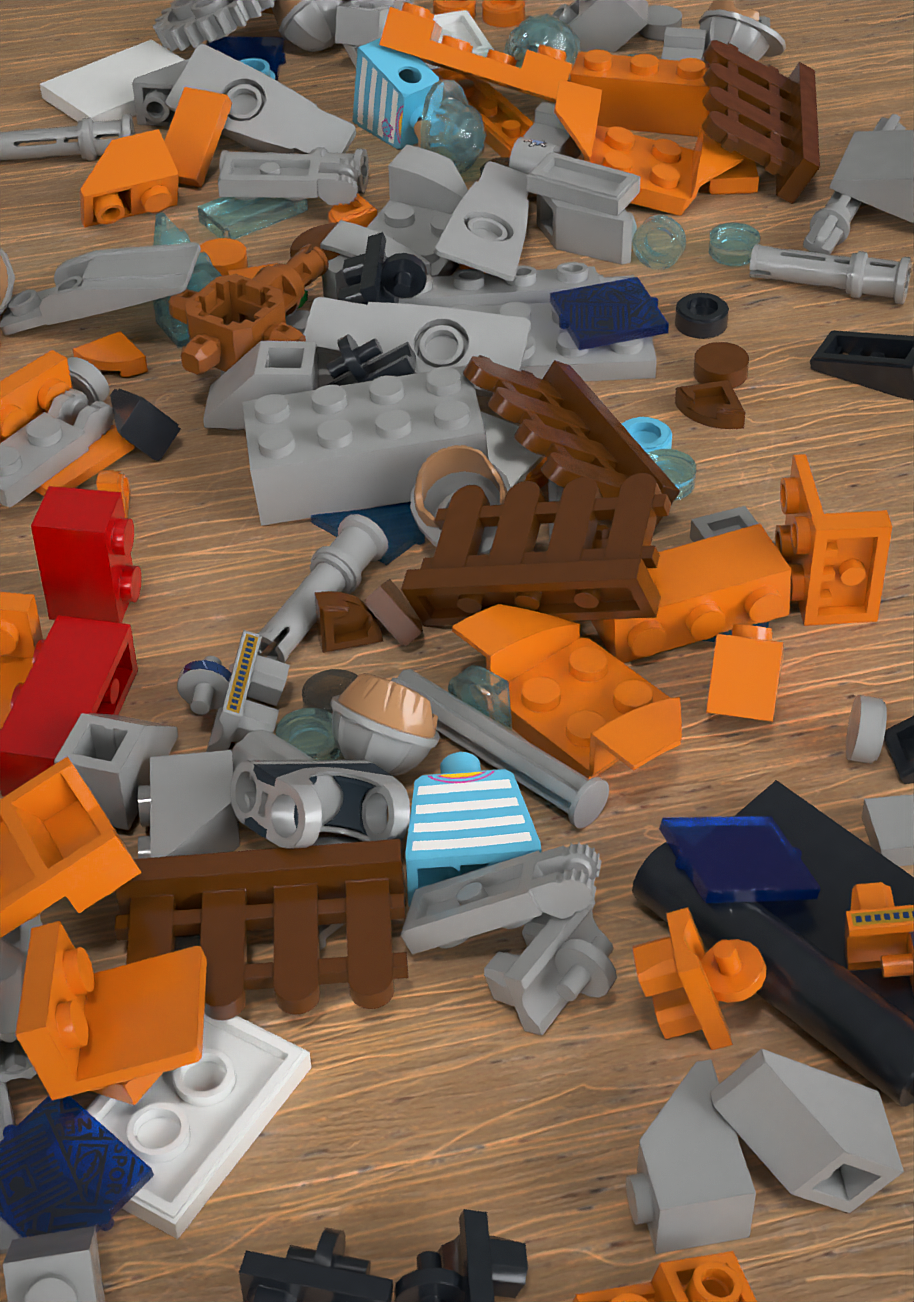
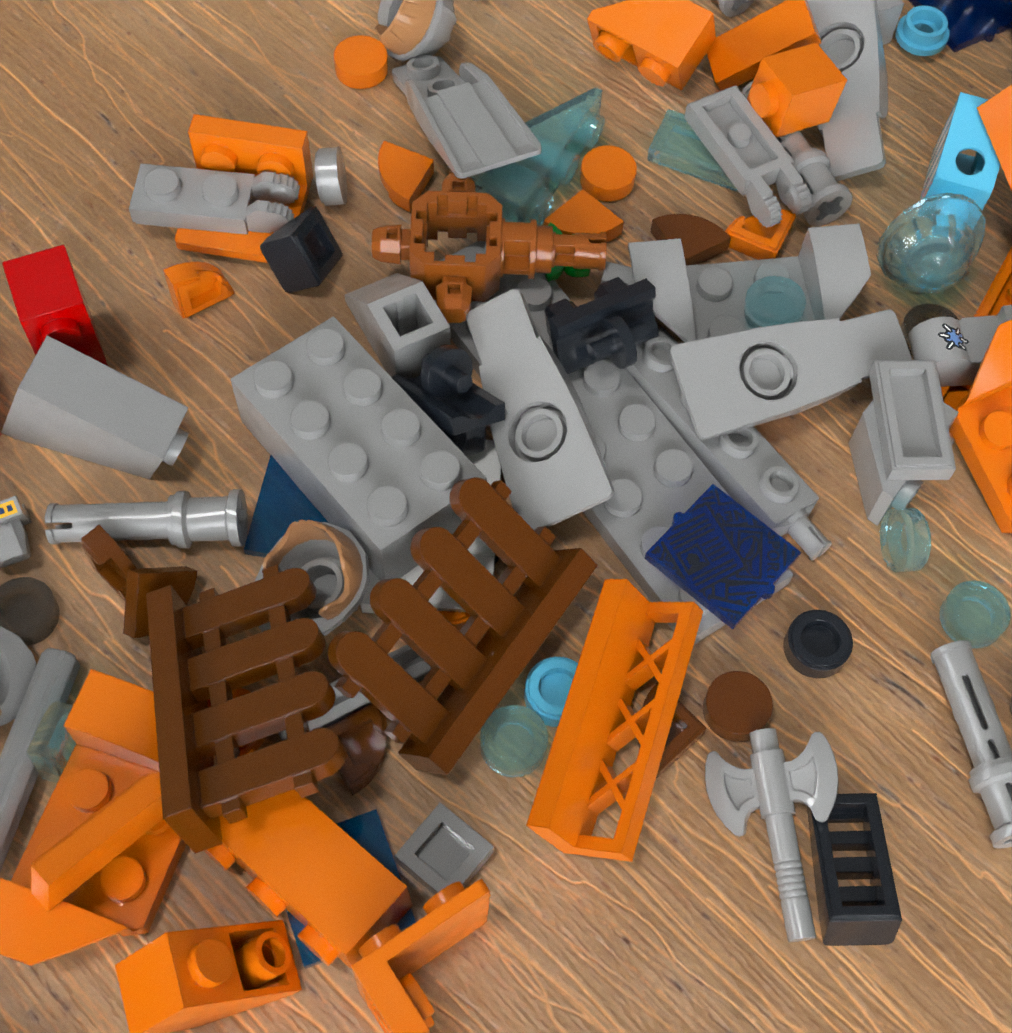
camera: 55 degrees right, 20 degrees up
(189, 578) = (94, 413): none -> light grey slope
(263, 123) = (796, 89): none -> orange brick
(428, 213) = (774, 302): none -> clear light blue tile
(611, 656) = (96, 841): none -> orange tile
(694, 418) = (600, 722): none -> orange fence
(799, 367) = (774, 789): none -> light grey piece

